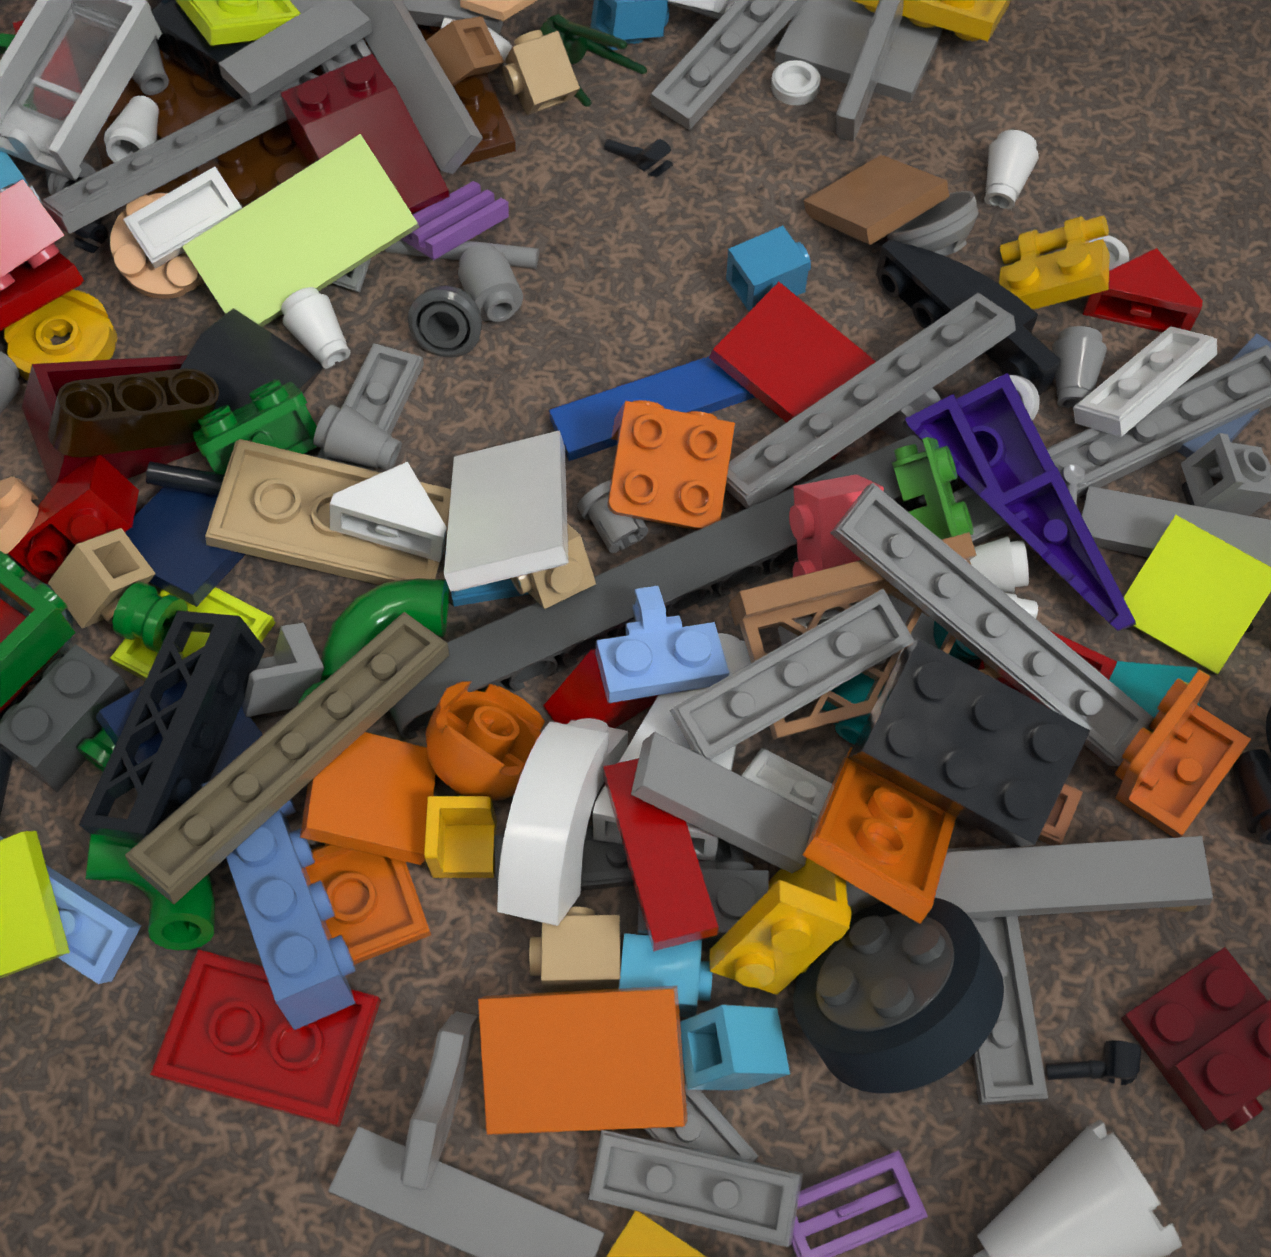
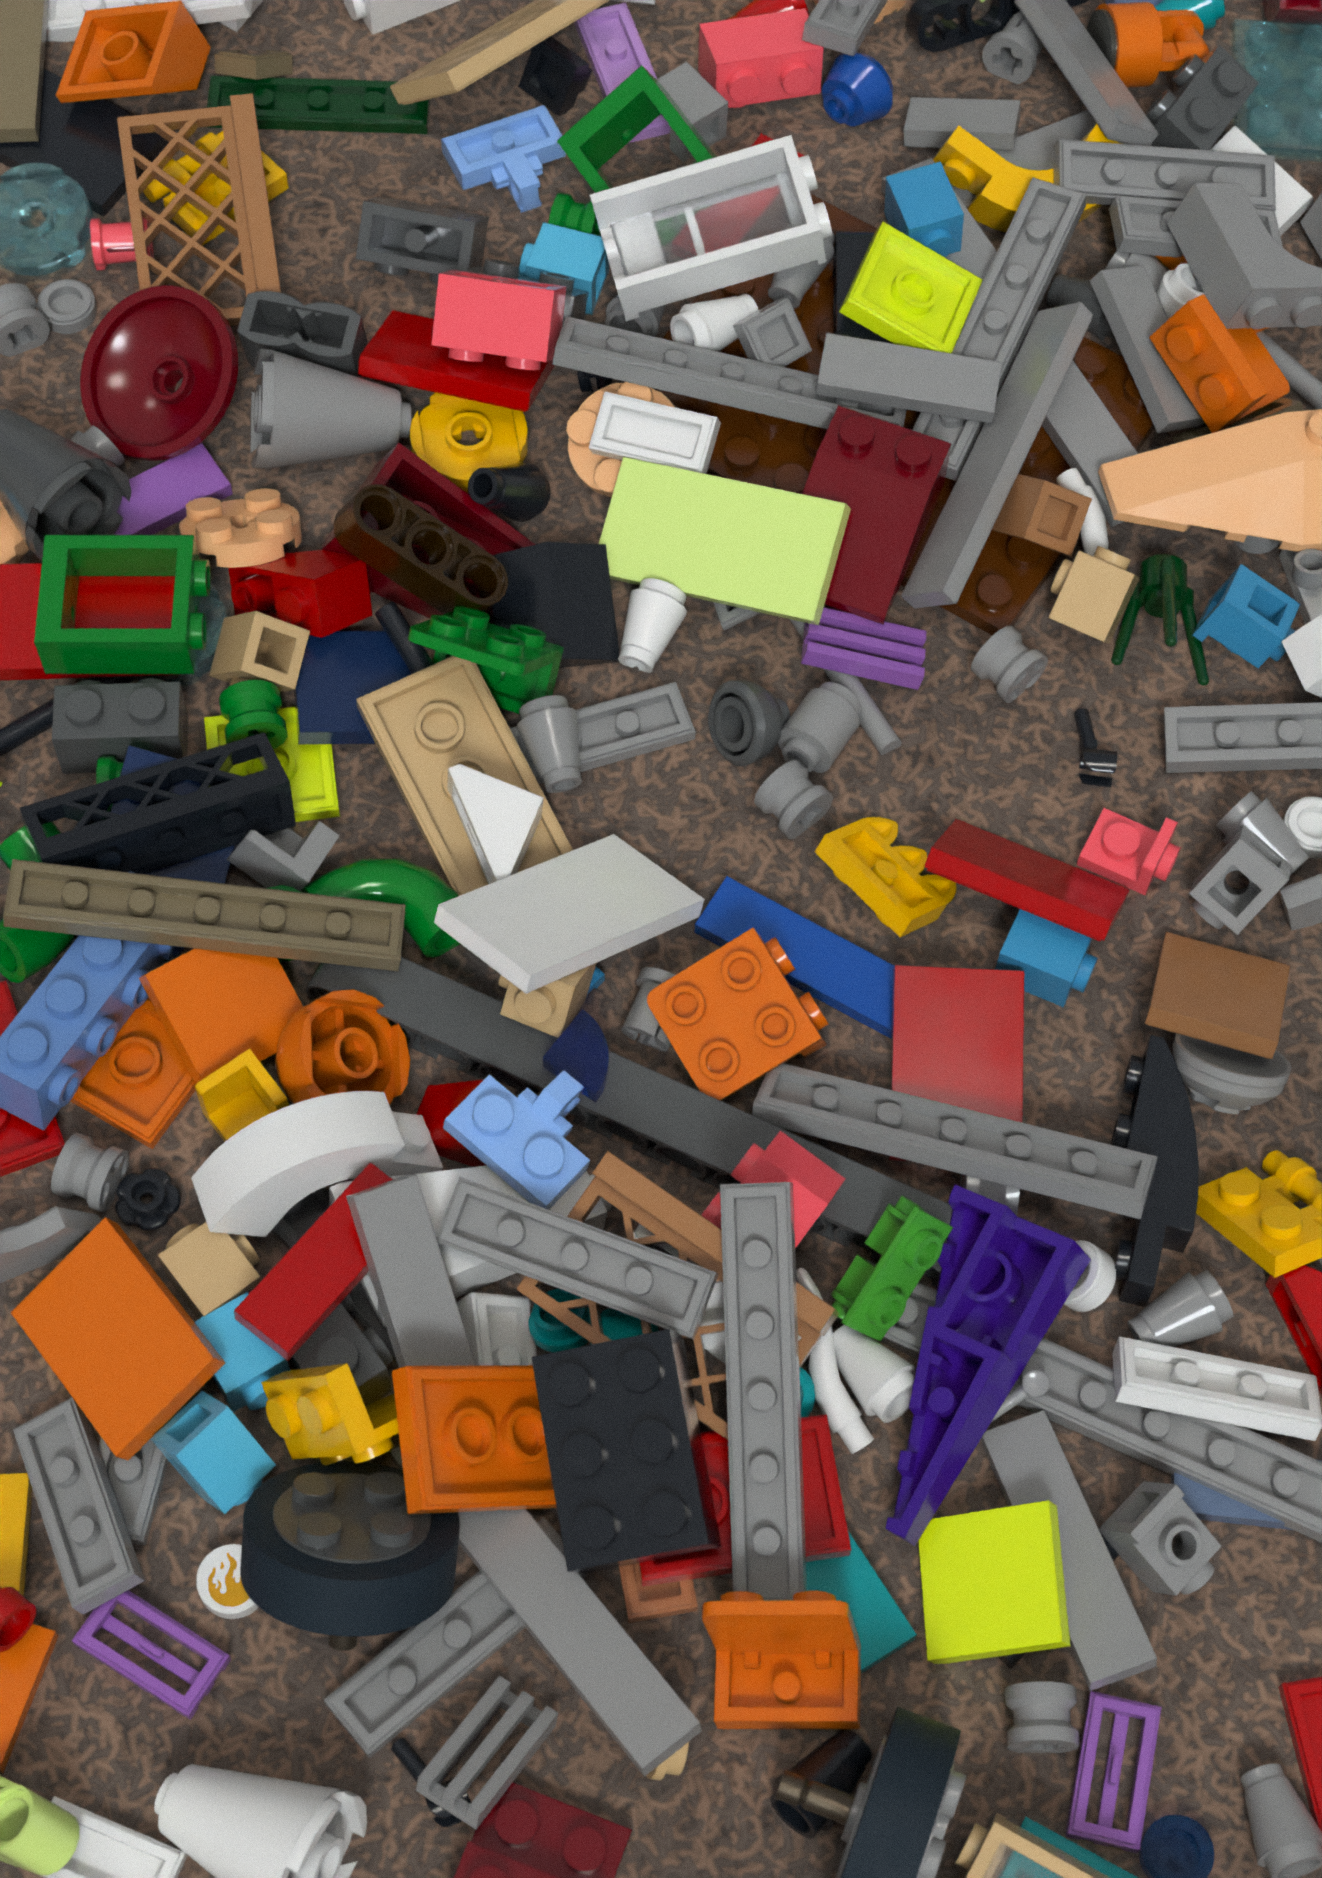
camera: 50 degrees right, 0 degrees up
(143, 334) = (511, 490): none -> black cone
(177, 103) = (773, 334): none -> light grey tile
(419, 990) = (89, 1171): none -> light grey wheel
(474, 981) = (151, 1215): none -> black plate
(528, 332) = (793, 799): none -> light grey wheel
(542, 152) = (1008, 663): none -> light grey wheel
(621, 574) = (582, 1054): none -> clear blue tile
(631, 319) = (886, 875): none -> yellow plate
(713, 239) = (1027, 879): none -> red tile
(733, 180) = (1129, 851): none -> coral bracket
(782, 108) = (1267, 825): none -> light grey cone
(807, 746) = (550, 1332): none -> teal plate
(810, 134) = (1237, 907): none -> light grey brick
(836, 1110) = (221, 1584): none -> white tile
(1085, 964) = (517, 1710): none -> light grey tile

